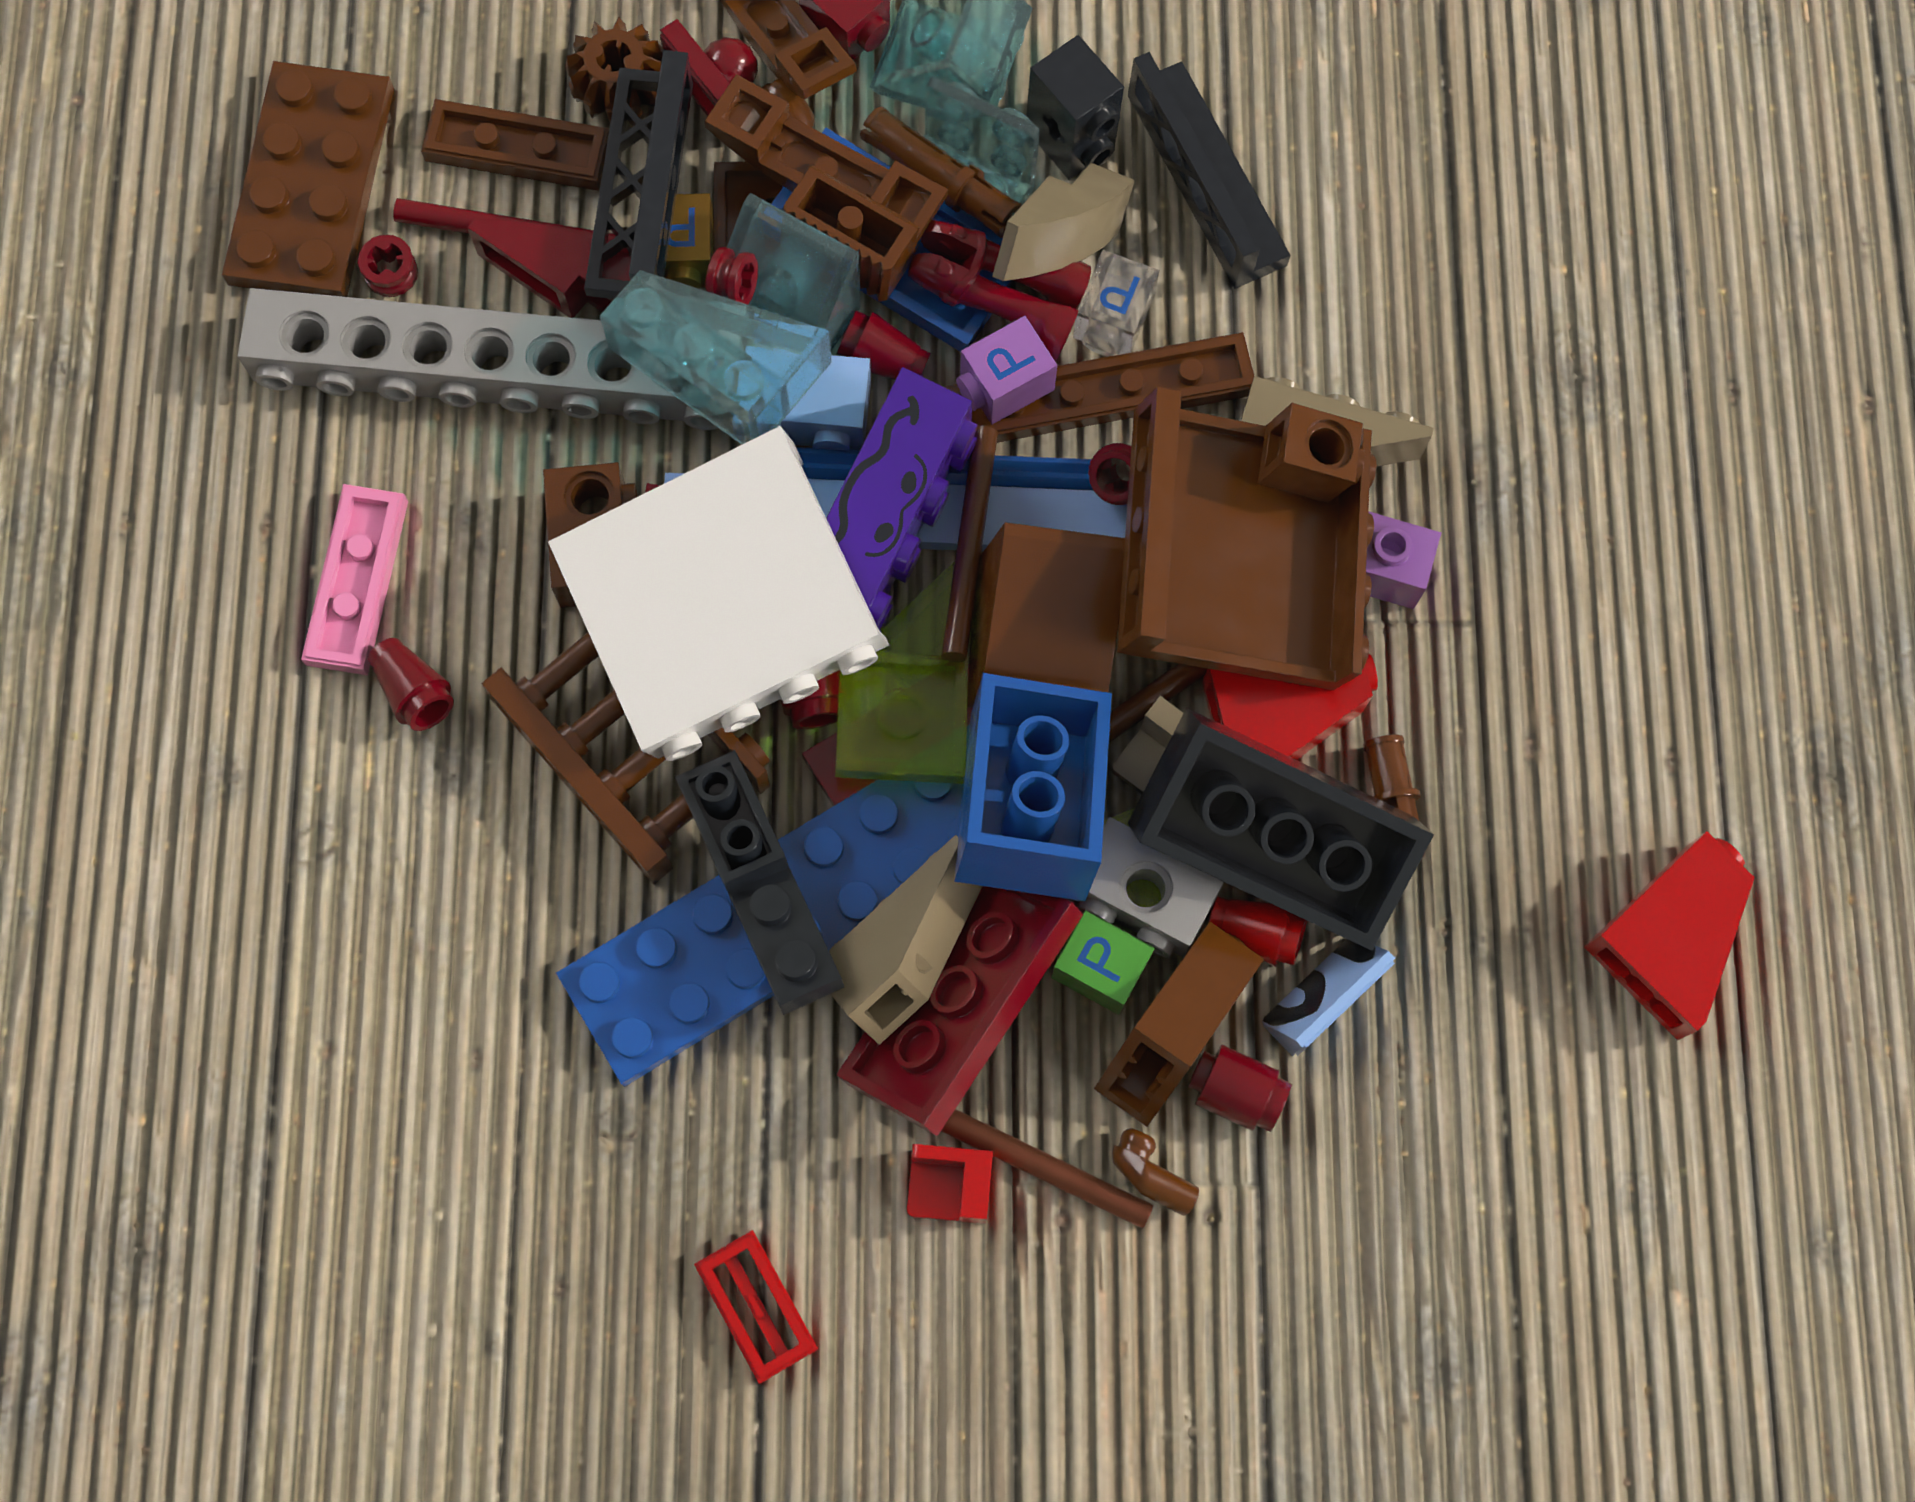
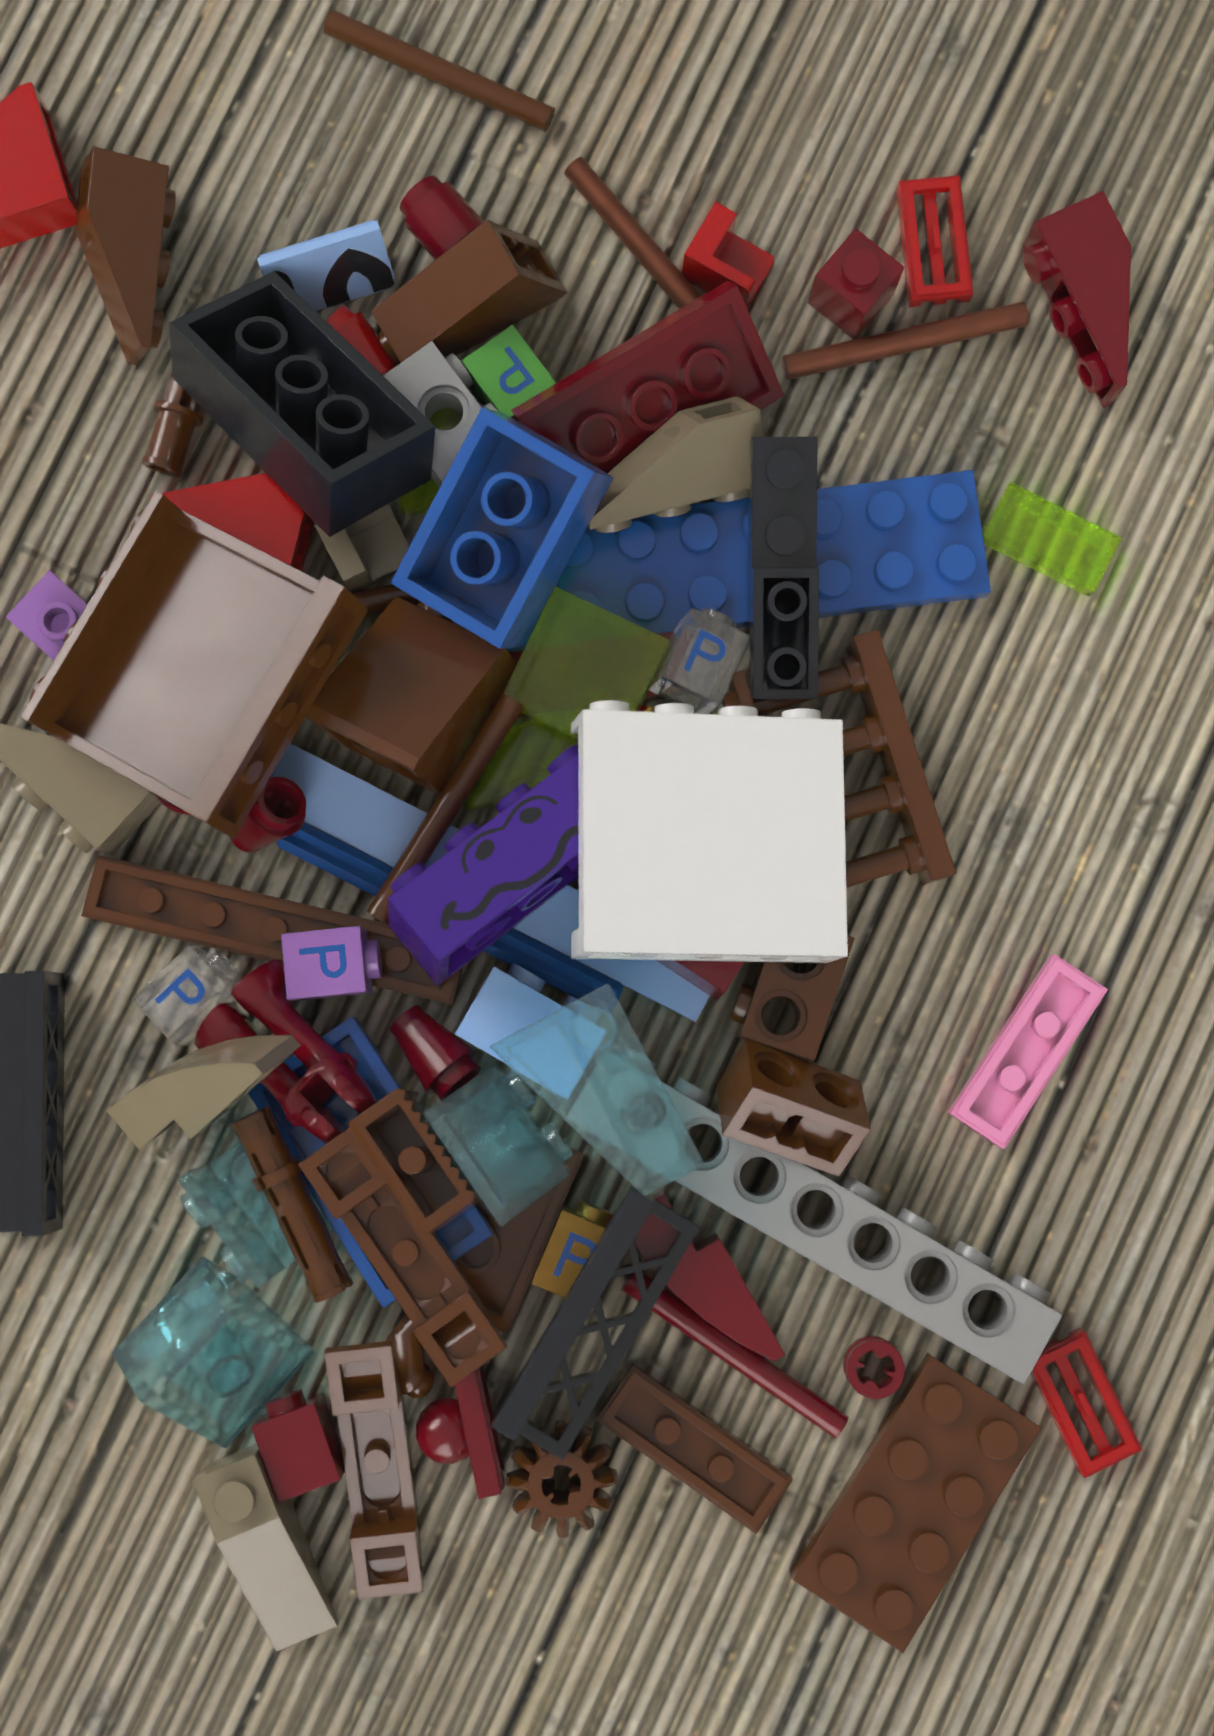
camera: 155 degrees left, 10 degrees up
(153, 281) = (1057, 1352): none -> red tile
(410, 685) = (1017, 918): dark red cone -> none
(518, 1054) = (1050, 539): none -> clear neon green tile
(545, 423) = (792, 1107): none -> reddish brown brick
(583, 1331) = (1086, 276): none -> dark red slope
(732, 275) = (556, 1153): dark red bush -> none
(741, 1190) = (905, 340): none -> copper bar
(800, 773) = (700, 660): none -> clear brick
(813, 1209) = (855, 284): none -> dark red brick
(1075, 107) = (125, 1210): black brick -> none
(1149, 1179) = (560, 191): reddish brown arm -> none
(1292, 467) = (110, 726): reddish brown brick -> none
(1328, 1253) = (438, 70): none -> reddish brown bar
(1538, 938) = (120, 229): none -> reddish brown slope

